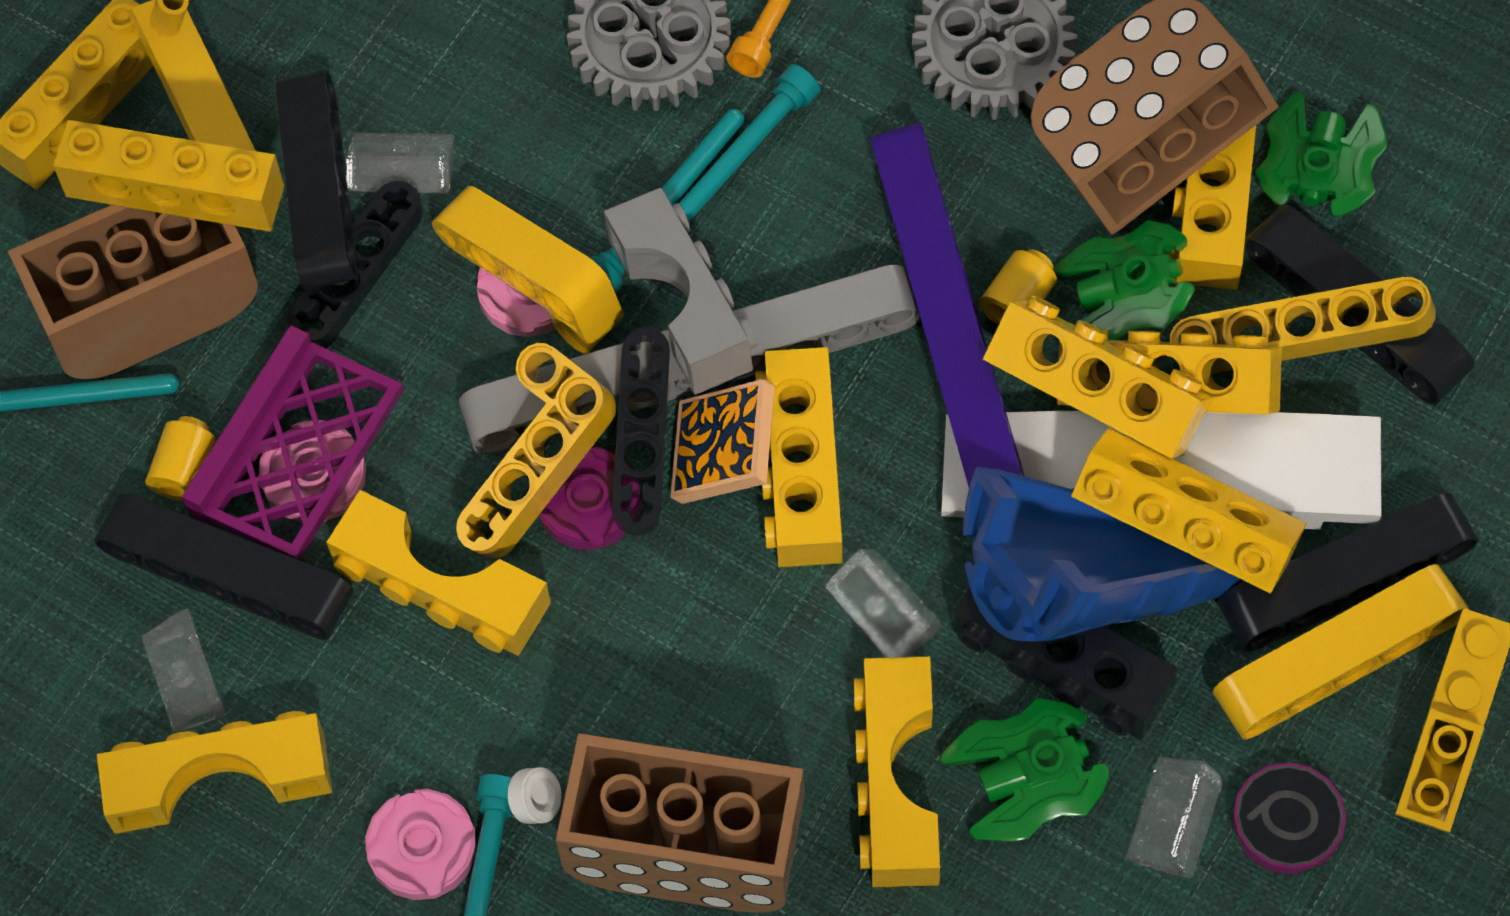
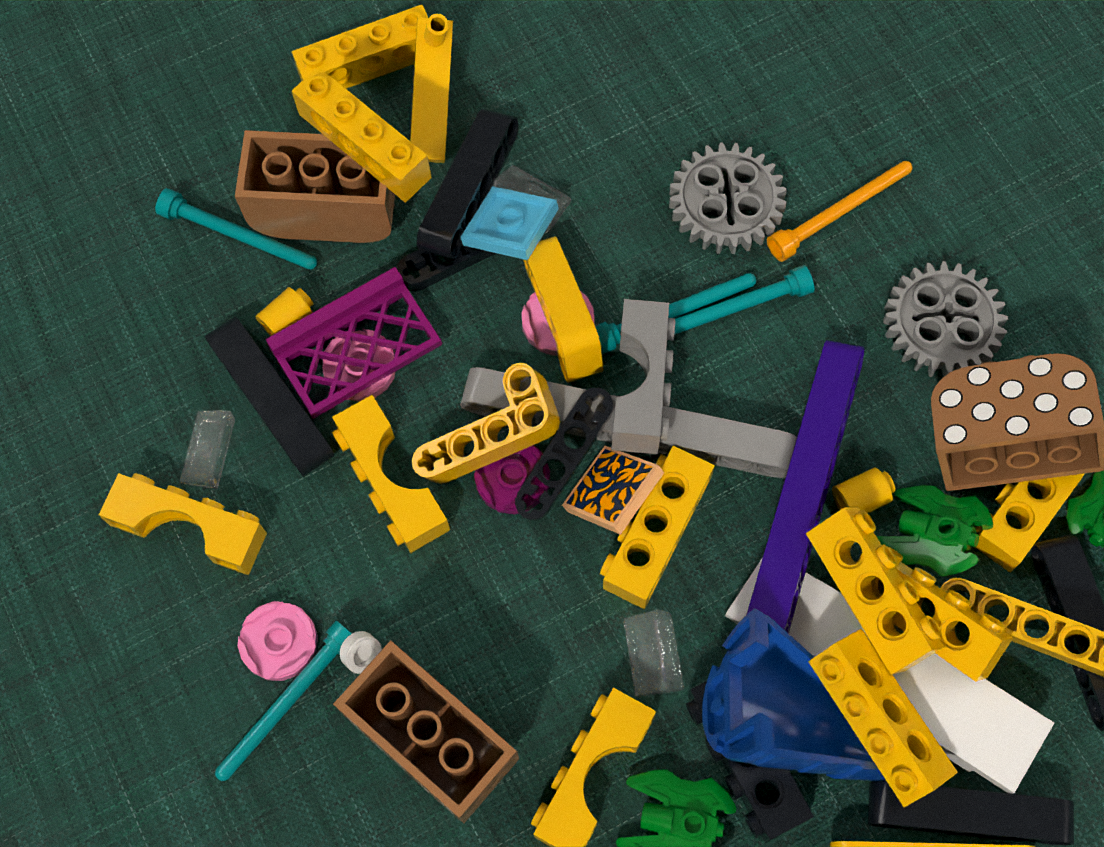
camera: 30 degrees right, 5 degrees up
(401, 199) = (509, 223): none -> medium azure tile

